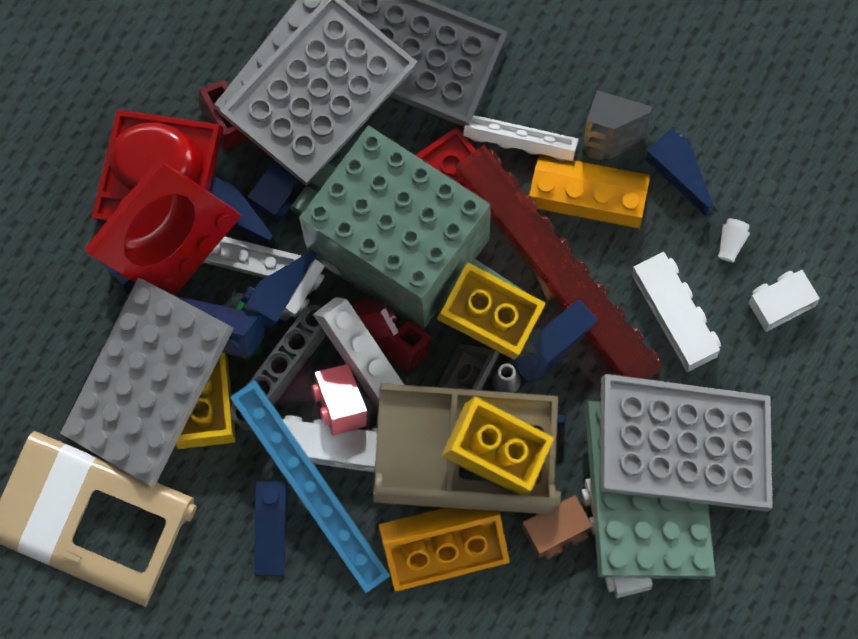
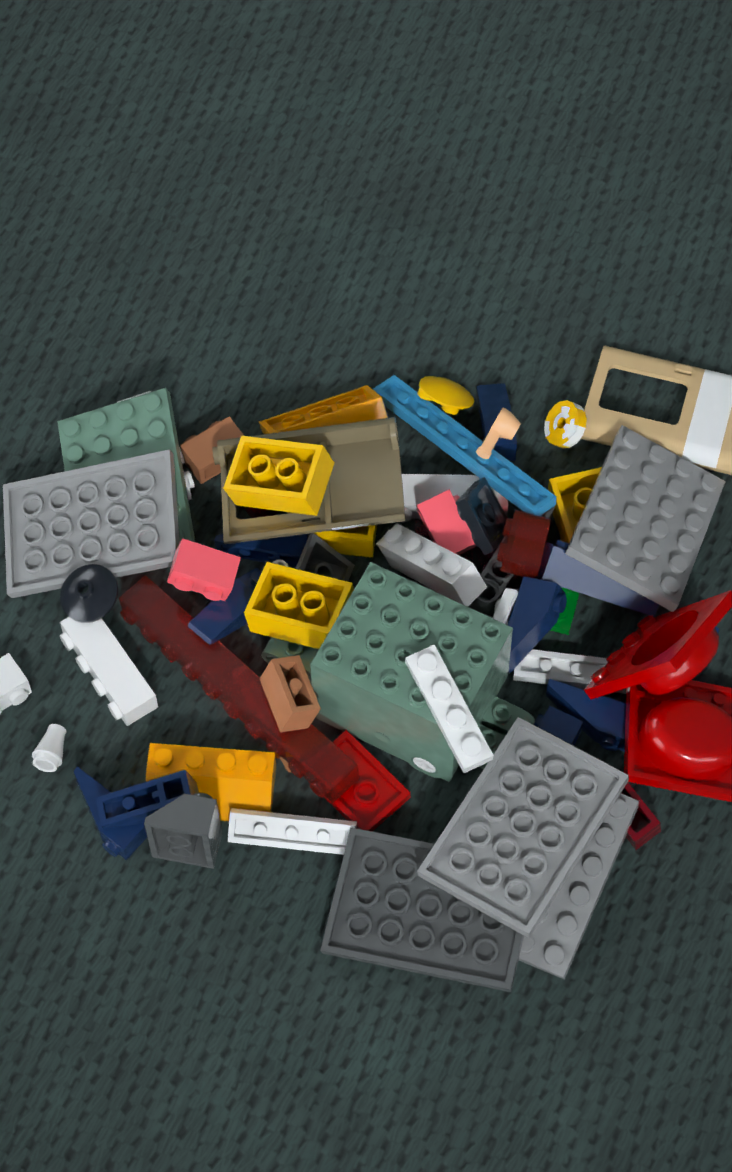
camera: 170 degrees right, 10 degrees down
(214, 508) = (565, 424): none -> piece
(268, 489) = (503, 427): none -> light nougat bar
(269, 353) = (524, 544): none -> clear red brick
(302, 395) = (483, 515): none -> black plate
(316, 559) = (446, 393): none -> yellow dish
(370, 143) = (449, 708): none -> white plate
(511, 225) = (290, 693): none -> nougat brick
(580, 354) = (203, 570): none -> coral brick
(644, 158) = (137, 802): none -> dark blue slope
(682, 375) = (96, 601): none -> black dish

